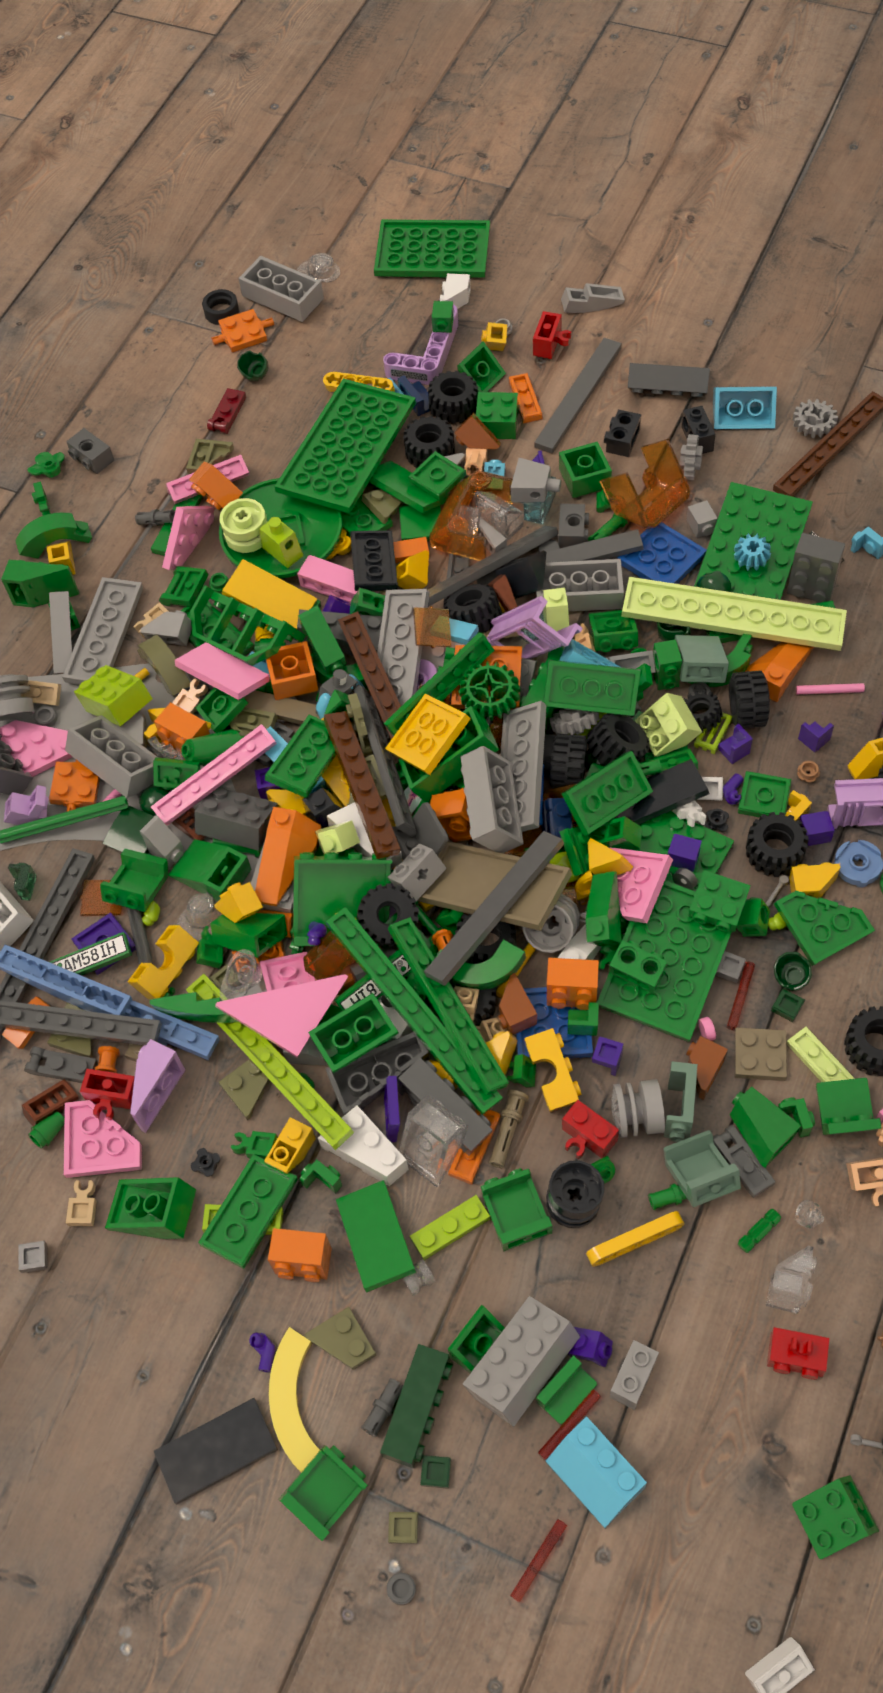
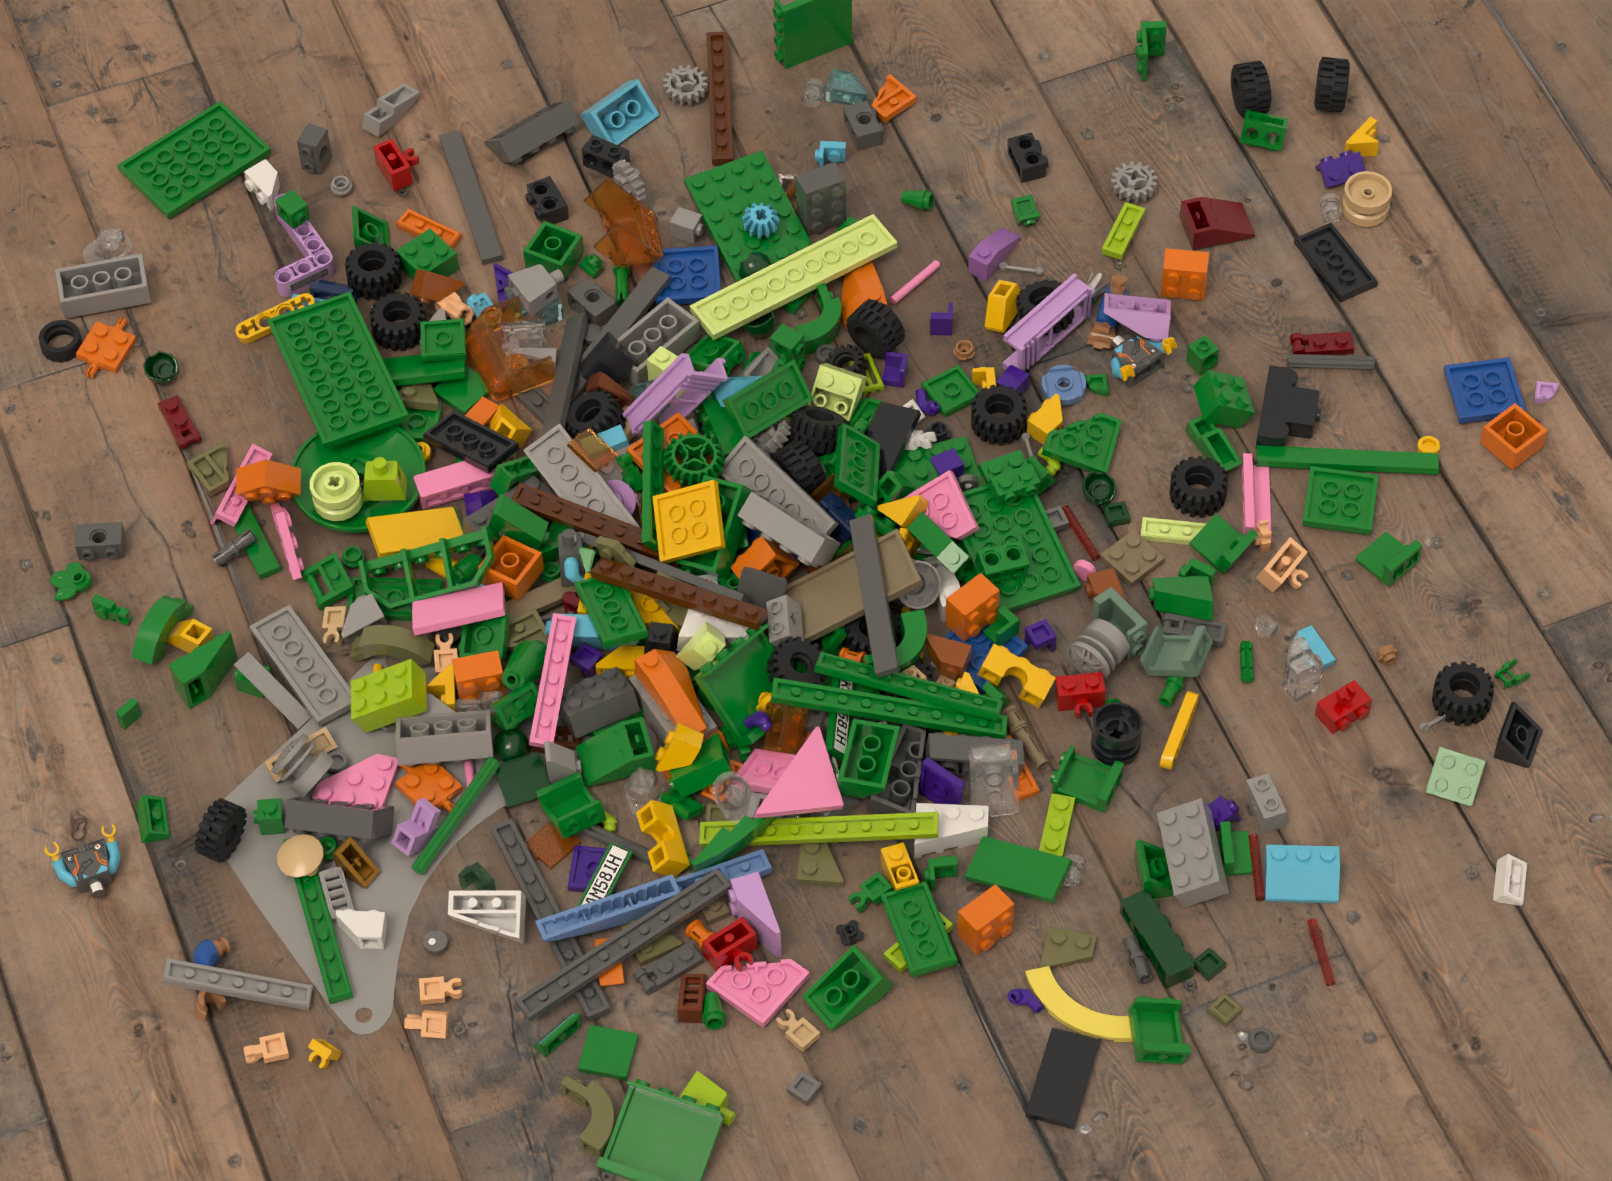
camera: 50 degrees left, 5 degrees down
(495, 336) = (350, 195): yellow brick -> none
(507, 289) = (314, 149): none -> dark grey brick
(702, 659) = (813, 322): sand green panel -> none
(830, 1272) = (1317, 646): none -> medium azure tile

